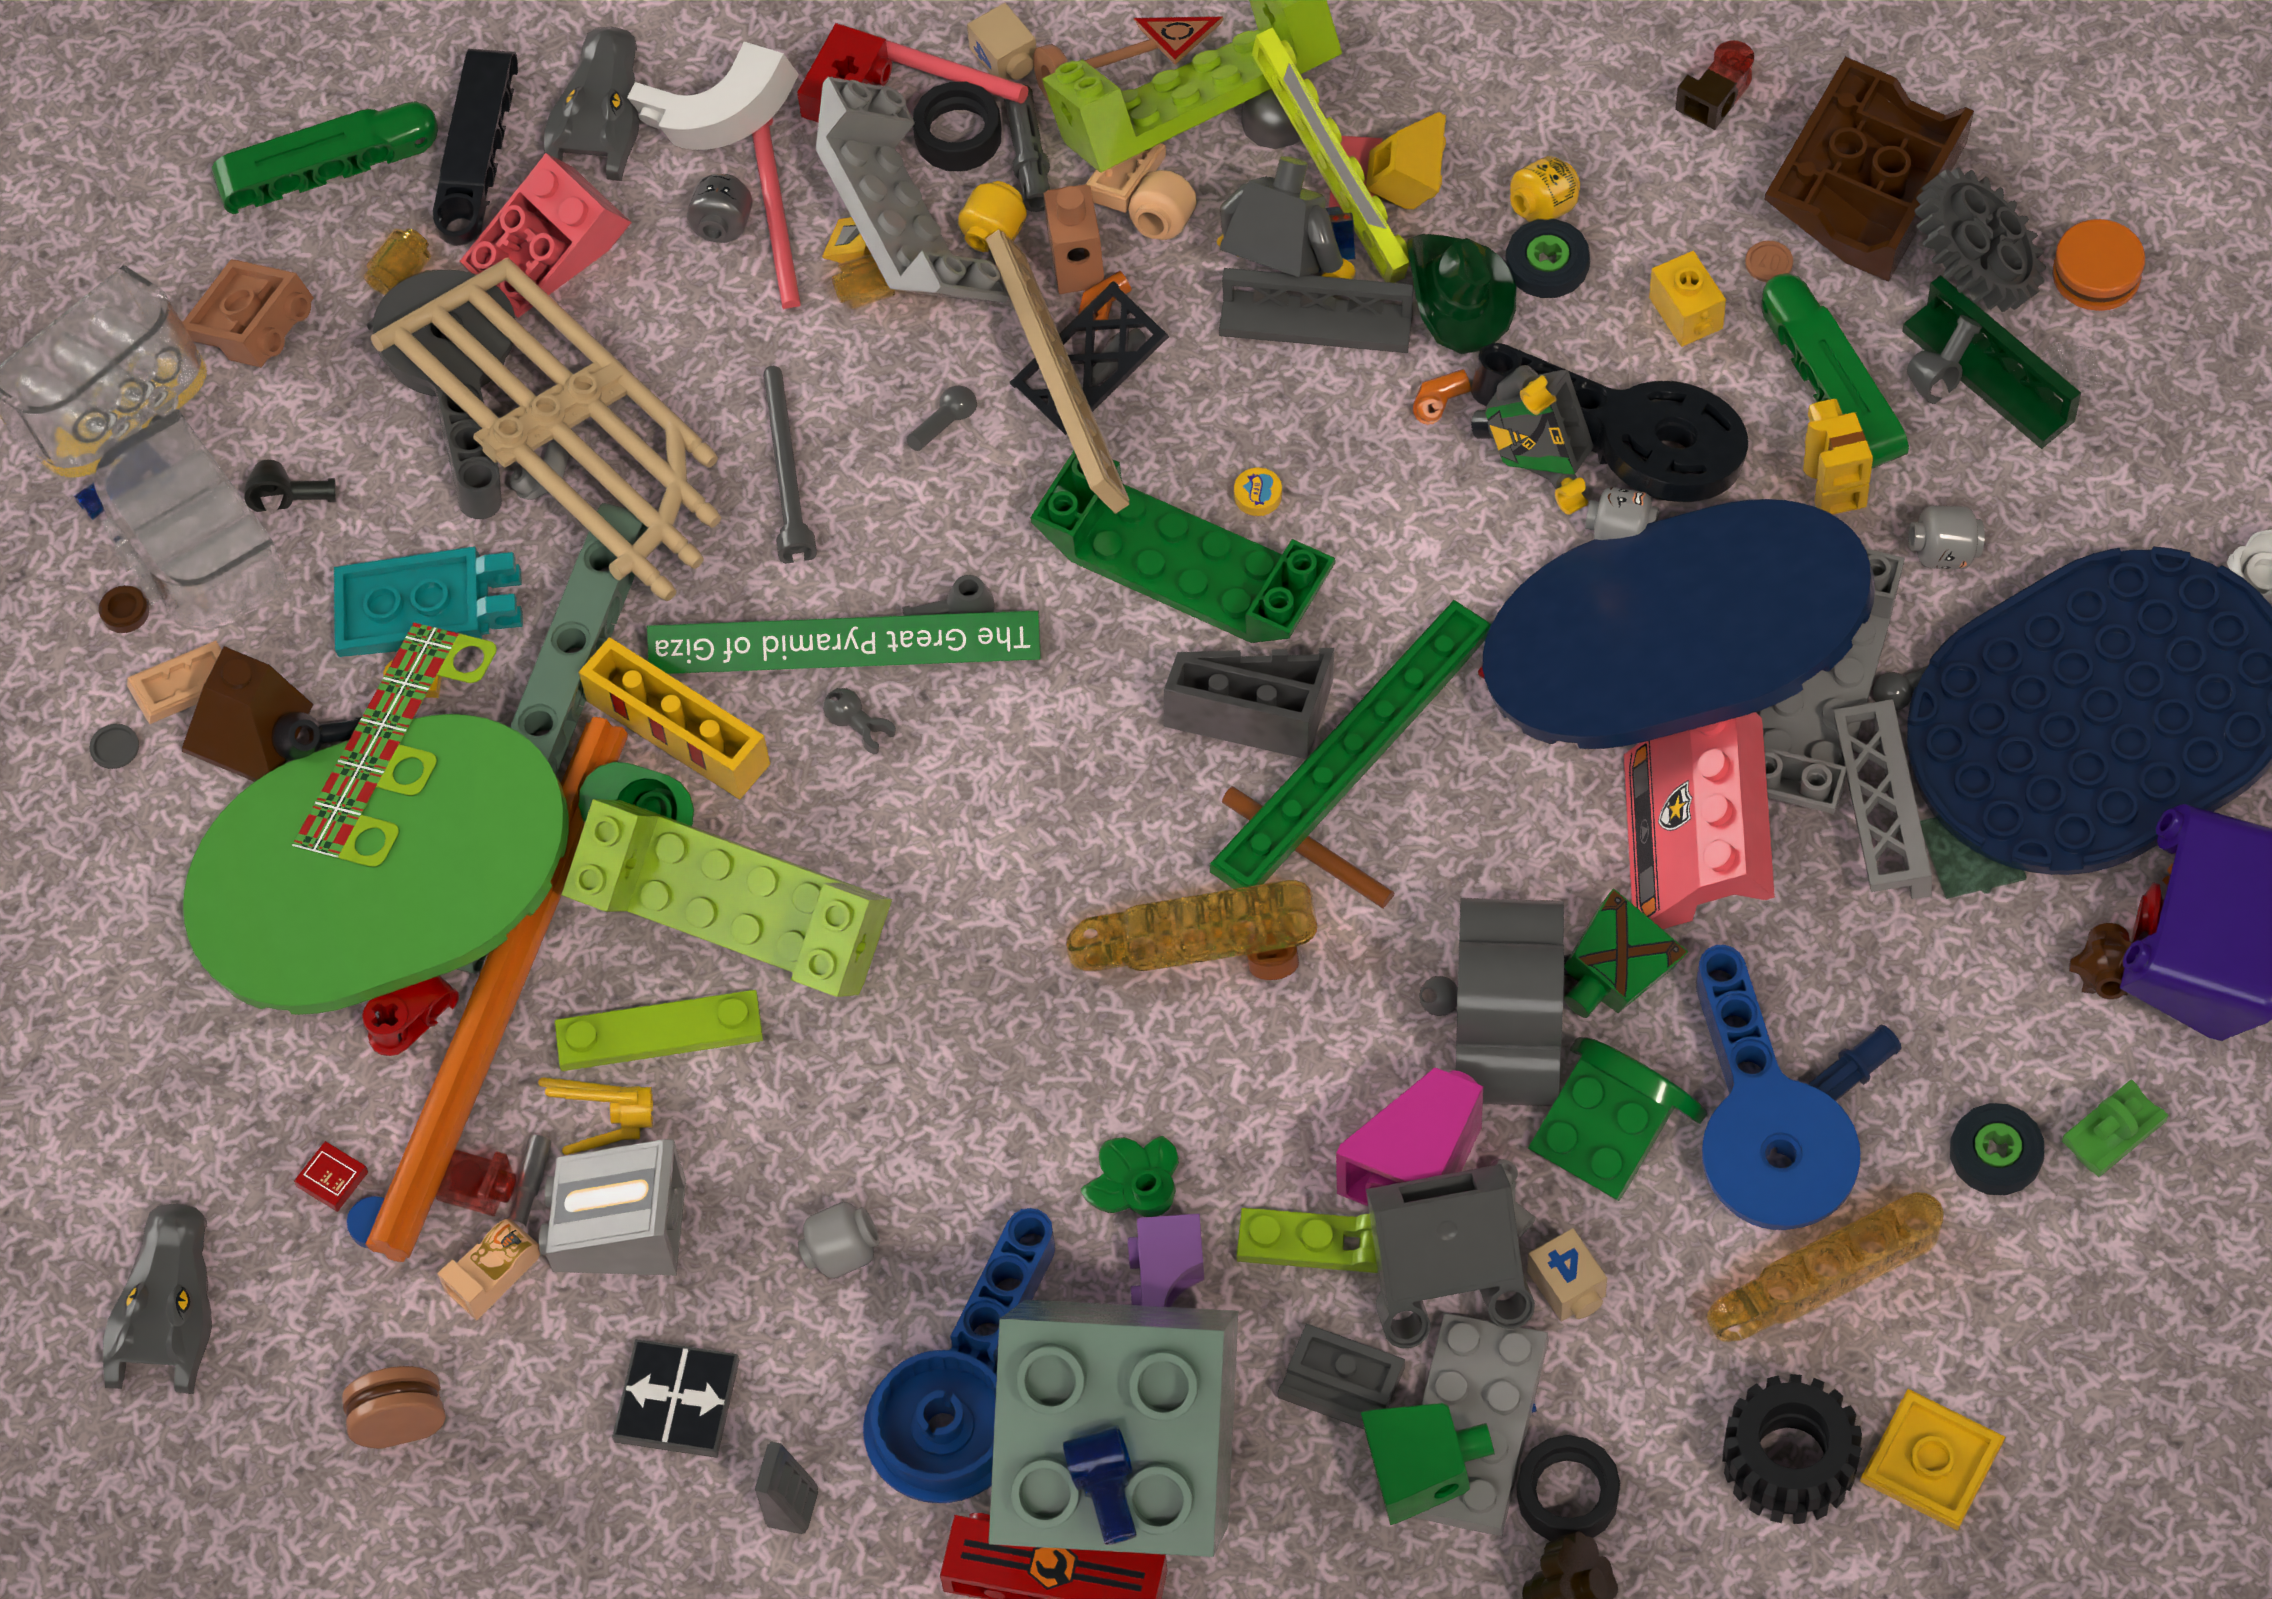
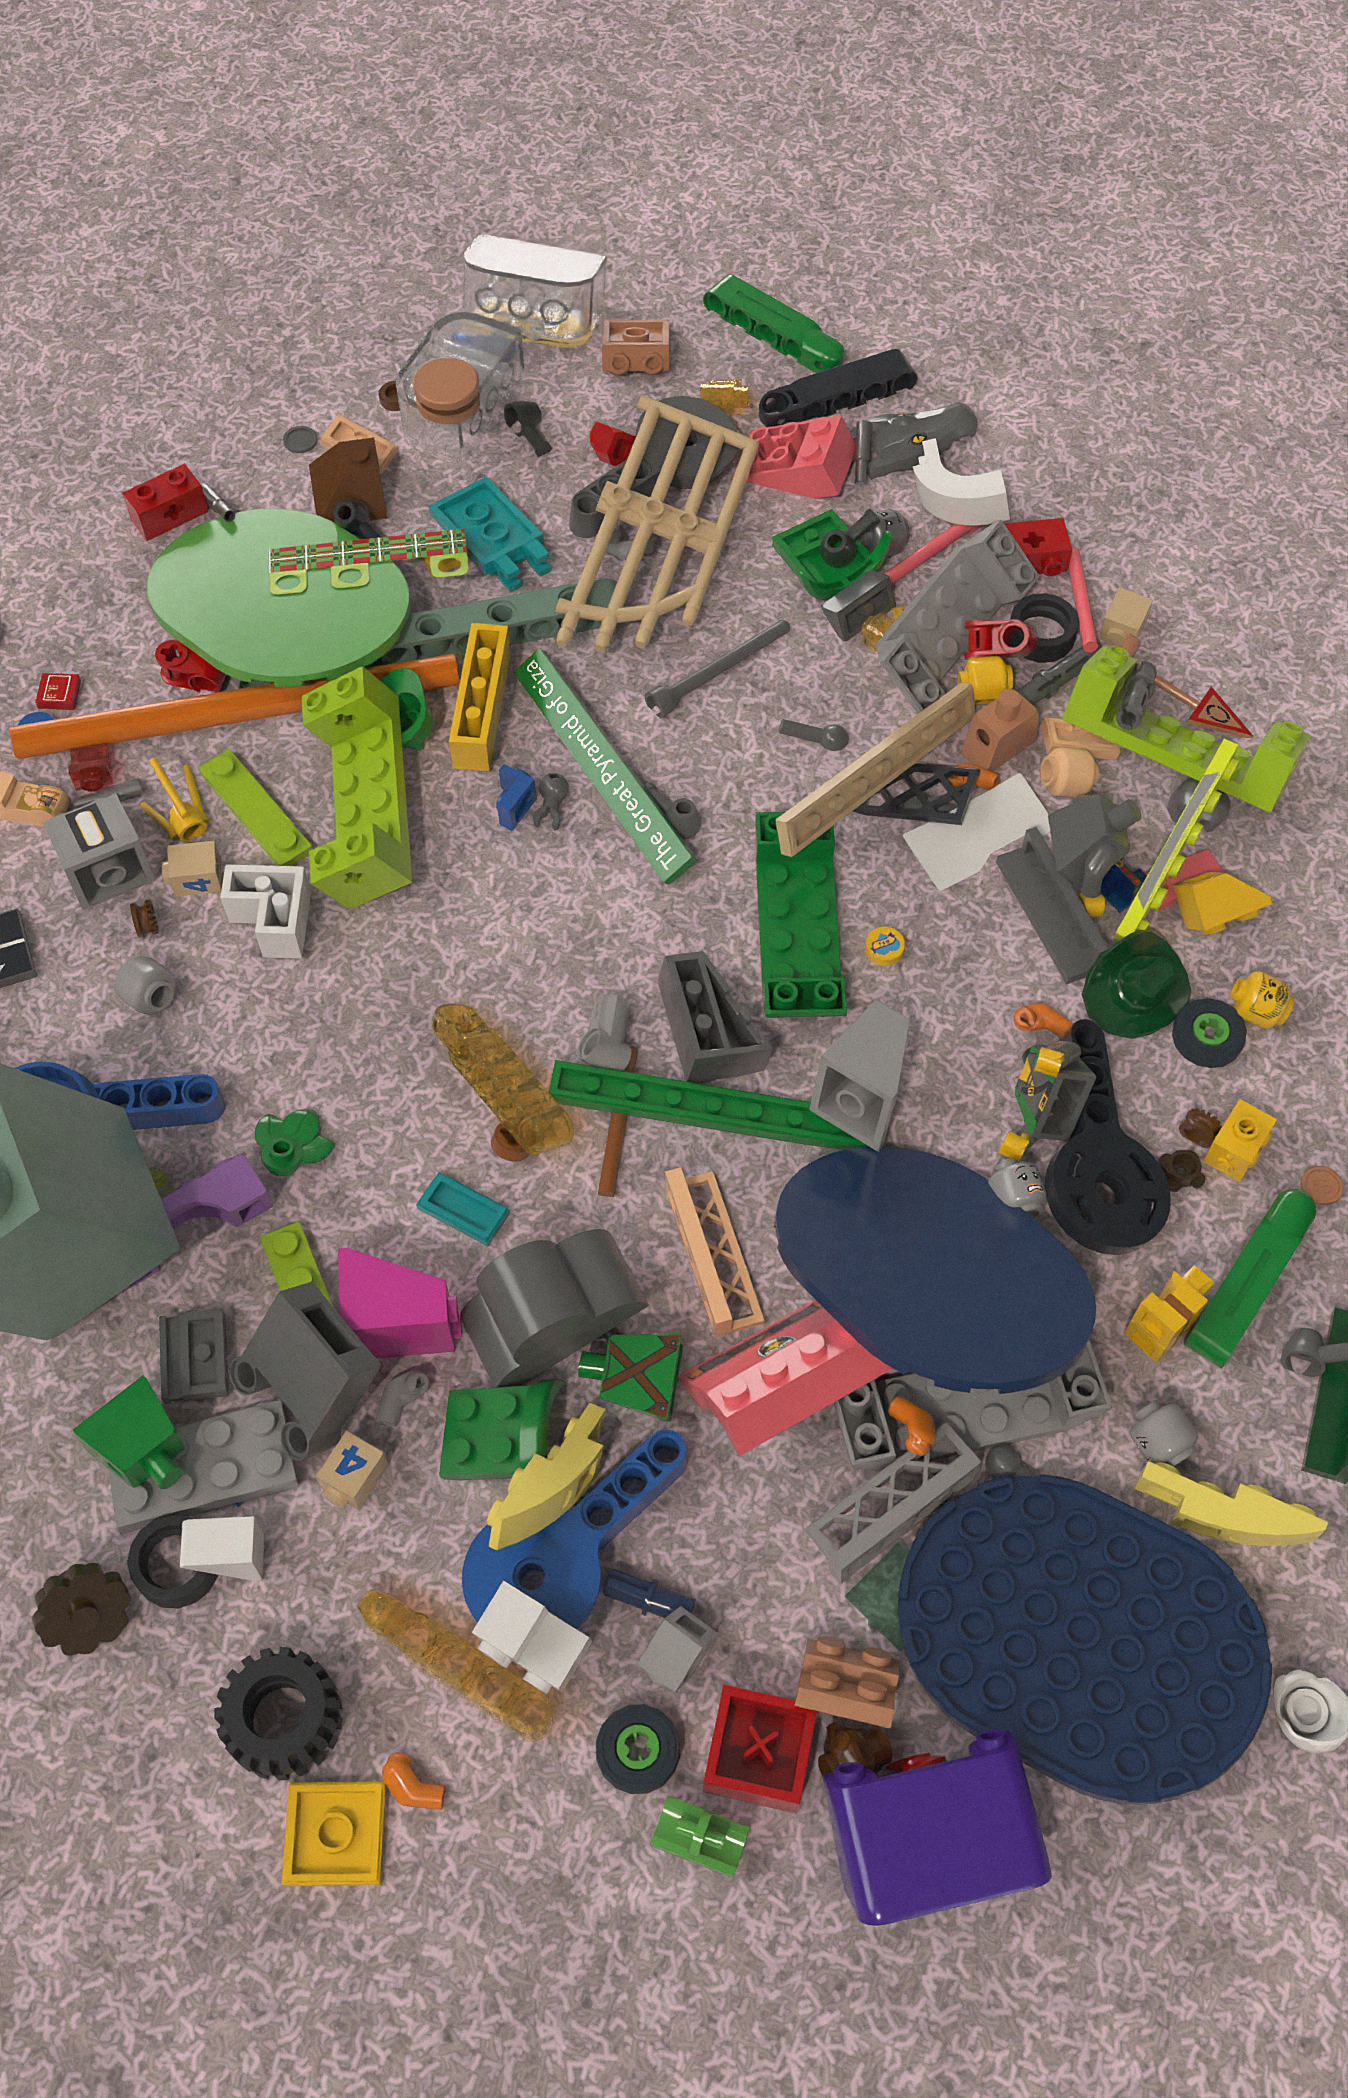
camera: 55 degrees right, 0 degrees up
(124, 932) = (165, 502): none -> red brick
(158, 879) = (217, 503): none -> flat silver pin
(234, 527) = (447, 390): none -> nougat head
(388, 411) = (610, 444): none -> red rock
(587, 165) = (862, 450): none -> flat silver pin
(703, 265) = (846, 552): none -> pearl dark grey bar
(709, 1125) = (193, 868): none -> tan brick
(710, 276) = (801, 552): none -> green piece
(742, 1207) = (143, 918): none -> reddish brown bush
(800, 281) = (858, 602): none -> dark grey slope
(819, 1050) = (274, 901): none -> white brick
(833, 745) = (517, 796): none -> blue bracket
(953, 176) = (993, 638): none -> red piece
(1133, 88) = (1138, 689): none -> dark grey pin
(1172, 294) = (991, 822): none -> white sticker
(1204, 802) = (604, 1042): none -> light grey piece
(1321, 1043) = (463, 1209): none -> teal tile
(1427, 575) = (862, 1075): none -> light grey slope
(1516, 839) = (699, 1252): none -> light nougat fence
(1593, 1417) = (223, 1547): none -> white slope
(1649, 325) = (1200, 1127): none -> reddish brown bush
(1686, 357) = (1189, 1162): none -> dark brown plate
(1700, 1075) = (551, 1484): none -> light yellow slope
(1824, 729) = (919, 1425): none -> orange arm
(1855, 1167) = (531, 1637): none -> white brick
(1923, 1372) = (406, 1787): none -> orange arm
(1926, 1060) = (677, 1649): none -> light grey brick
(2040, 925) = (848, 1681): none -> nougat plate
(2059, 523) = (1244, 1518): none -> light yellow slope
(2061, 1035) = (759, 1749): none -> red brick

